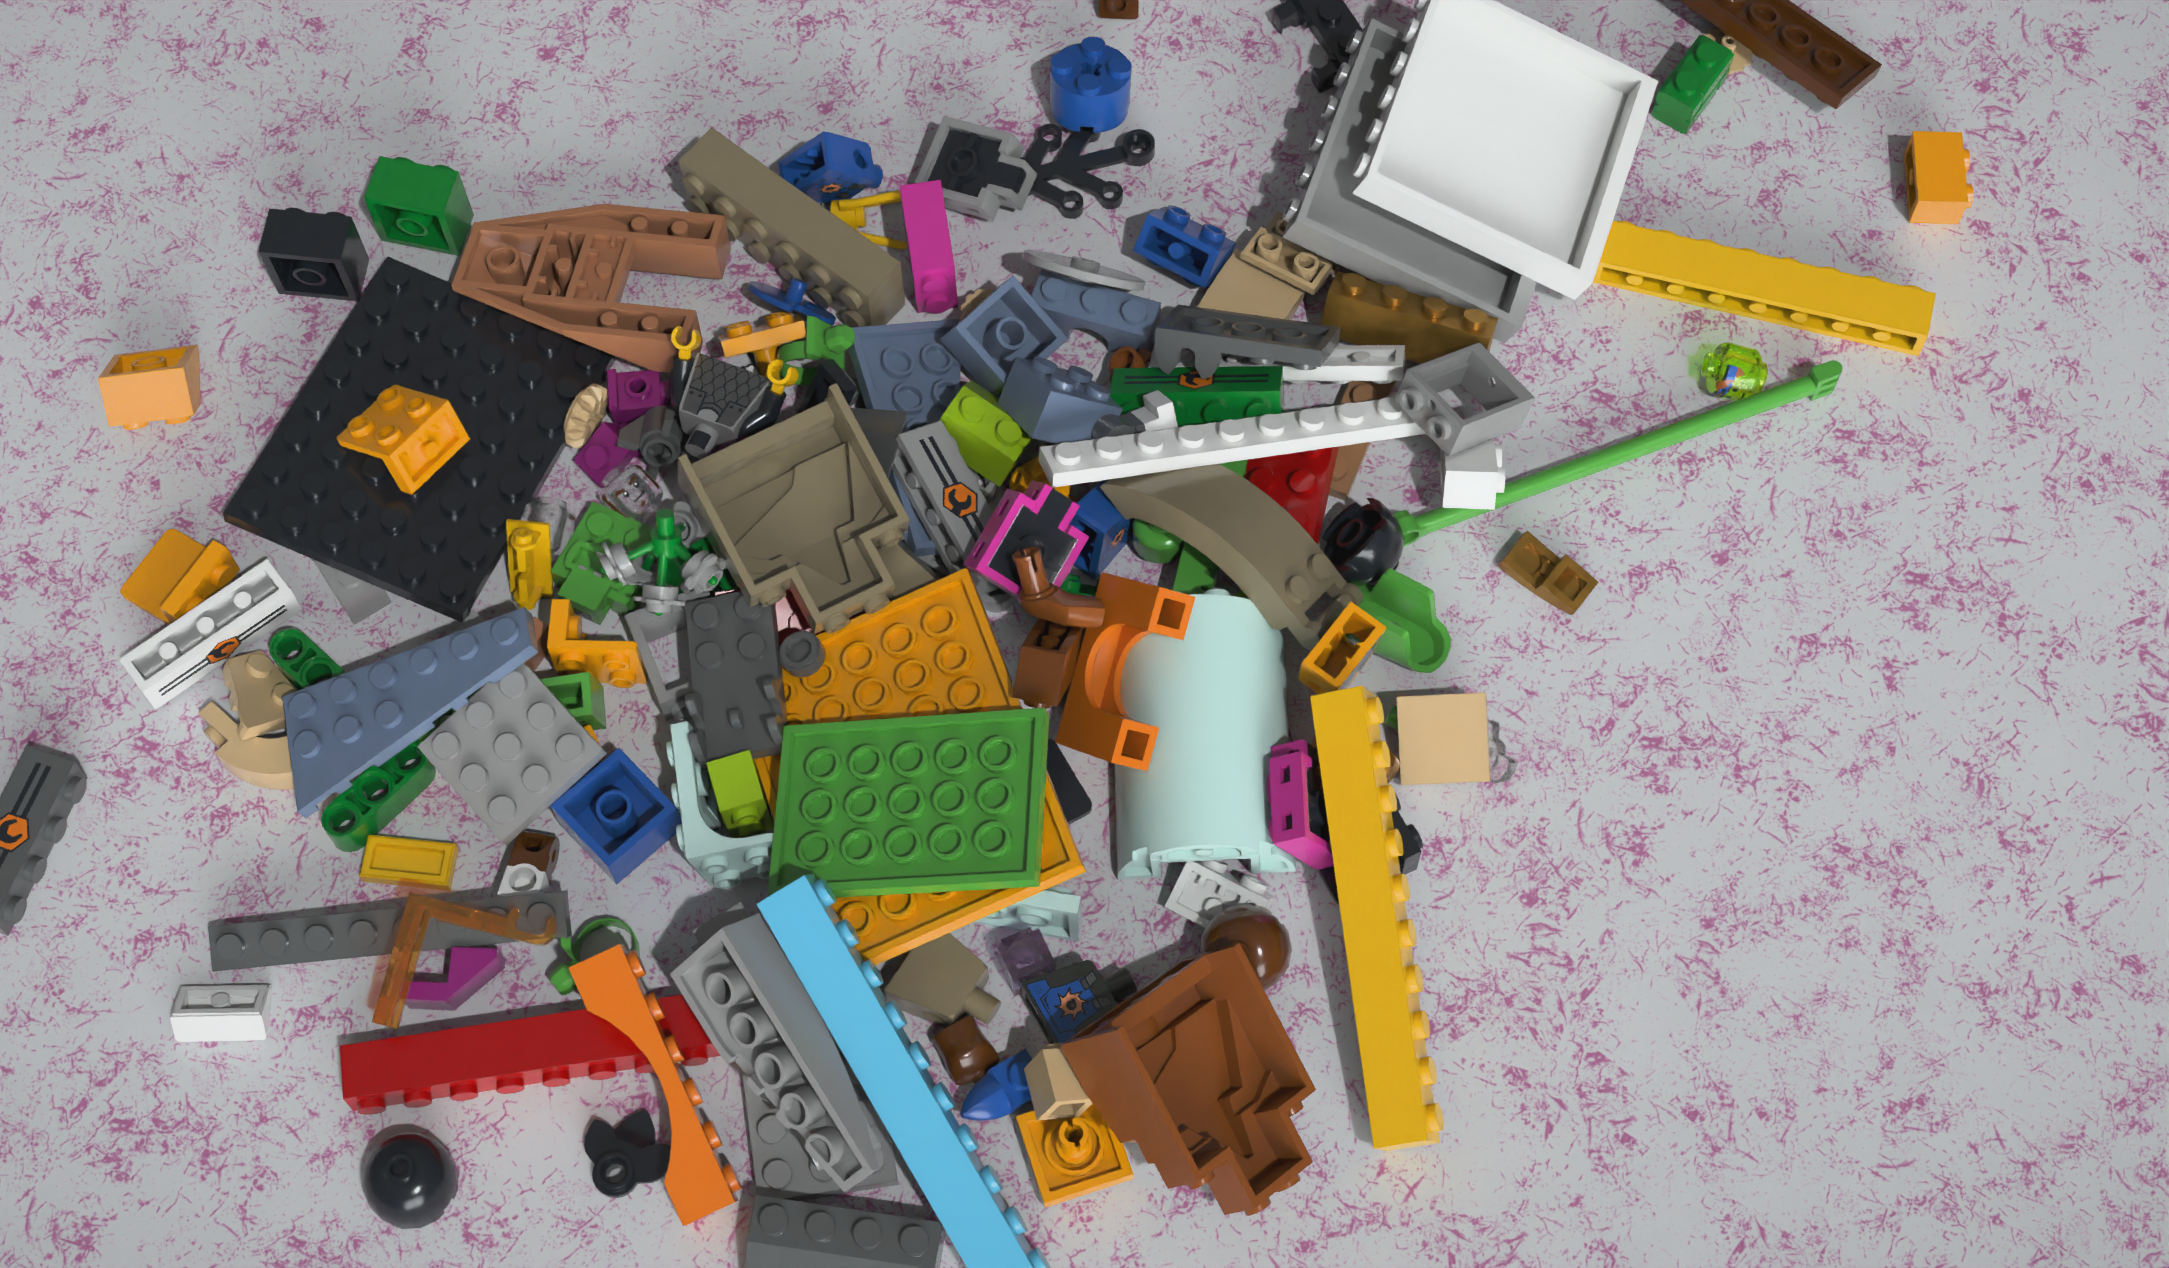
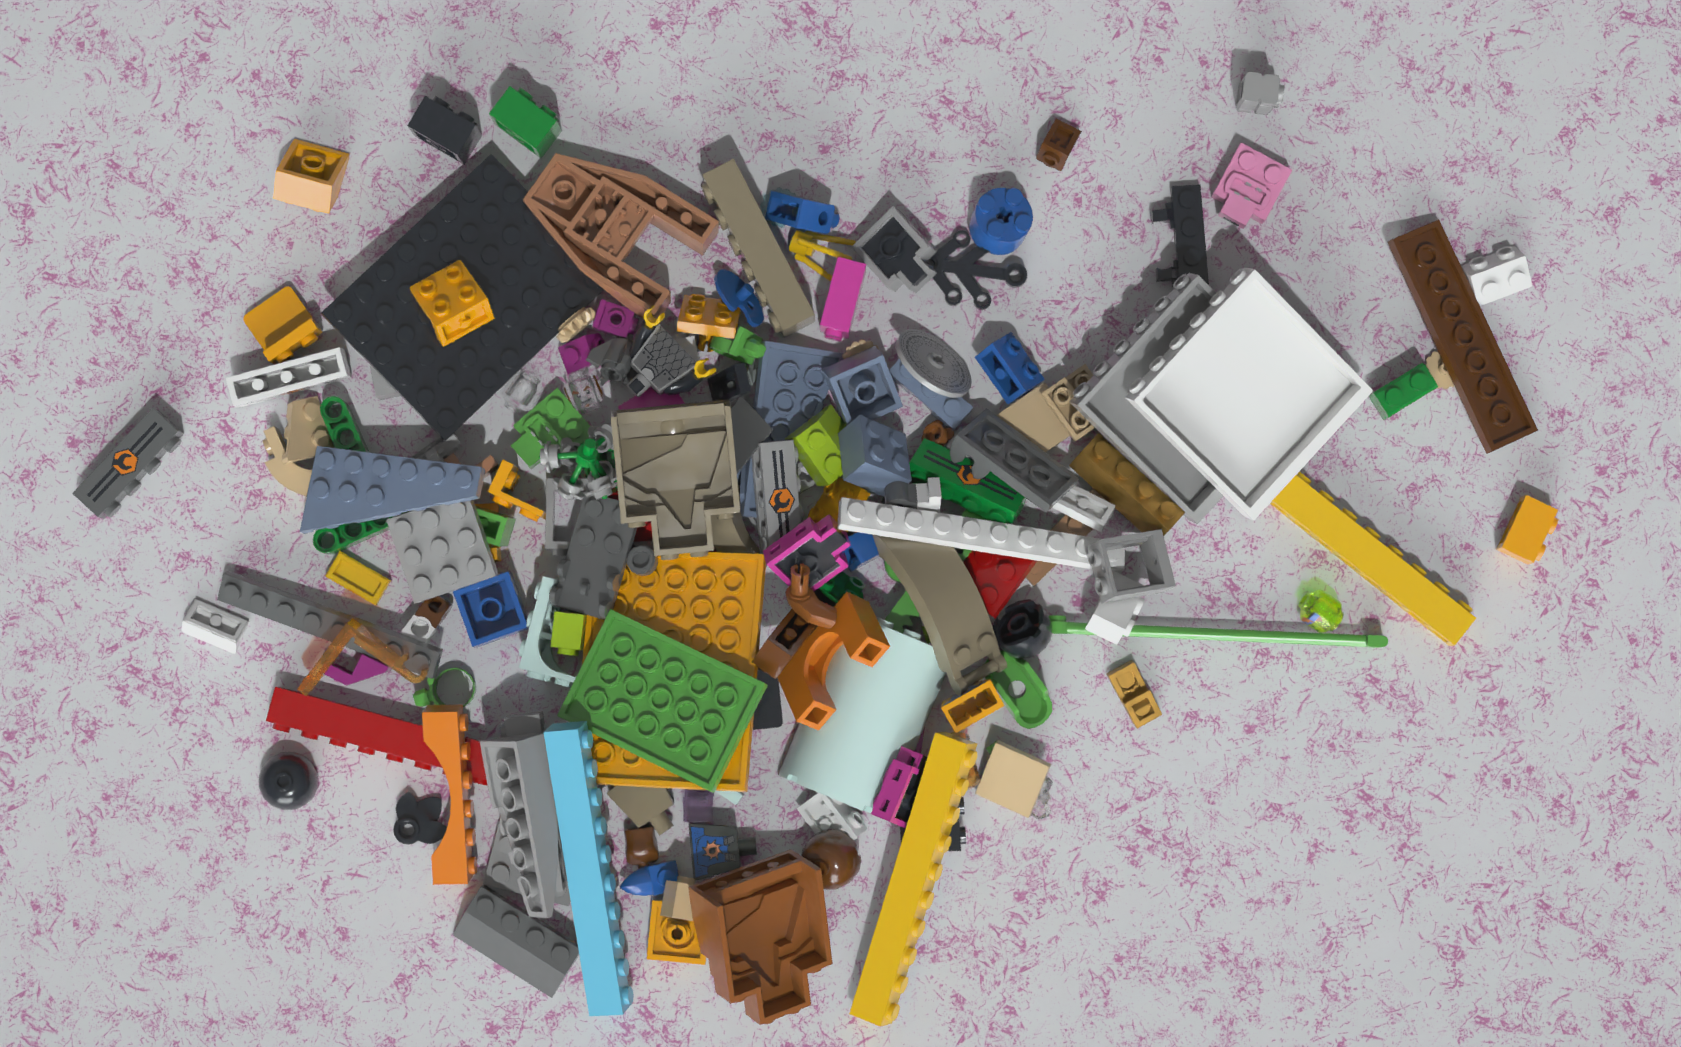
camera: 25 degrees right, 20 degrees up
(529, 561) = (501, 415): yellow hinge -> none

